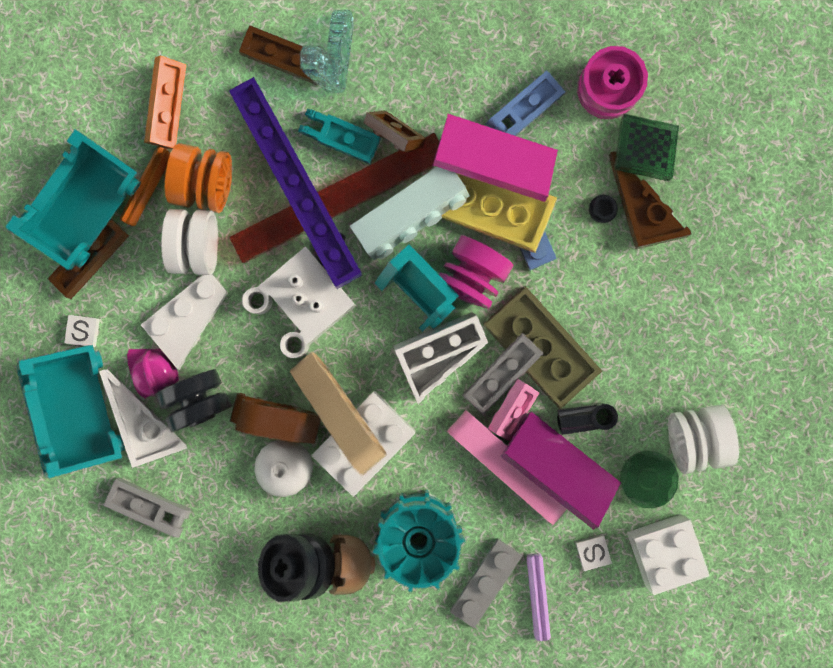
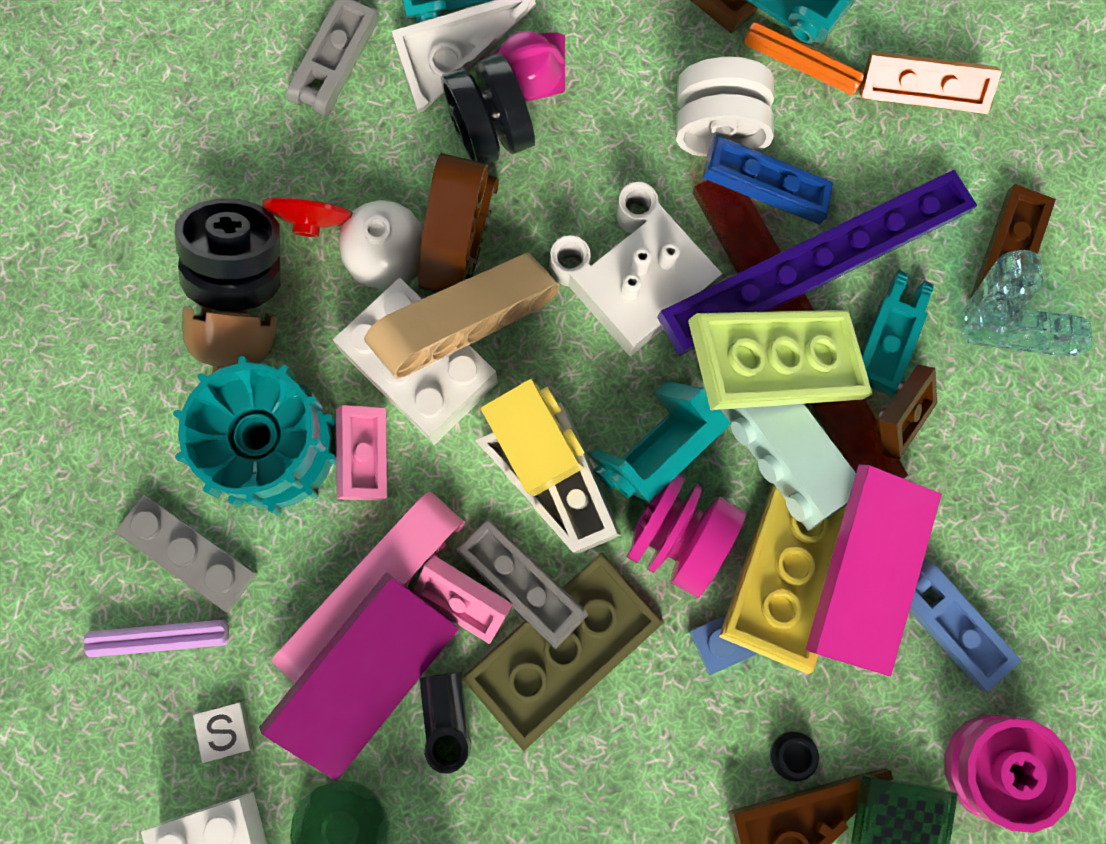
camera: 90 degrees right, 10 degrees down
(184, 318) = (611, 107): white wing -> none
(198, 178) = (822, 119): orange wheel -> none
(237, 214) = (767, 179): none -> blue tile
(270, 518) = (306, 215): none -> red dish
(364, 212) = (778, 358): none -> yellowish green tile
(419, 367) = (533, 437): none -> light yellow brick
(423, 476) = (361, 453): none -> bright pink plate

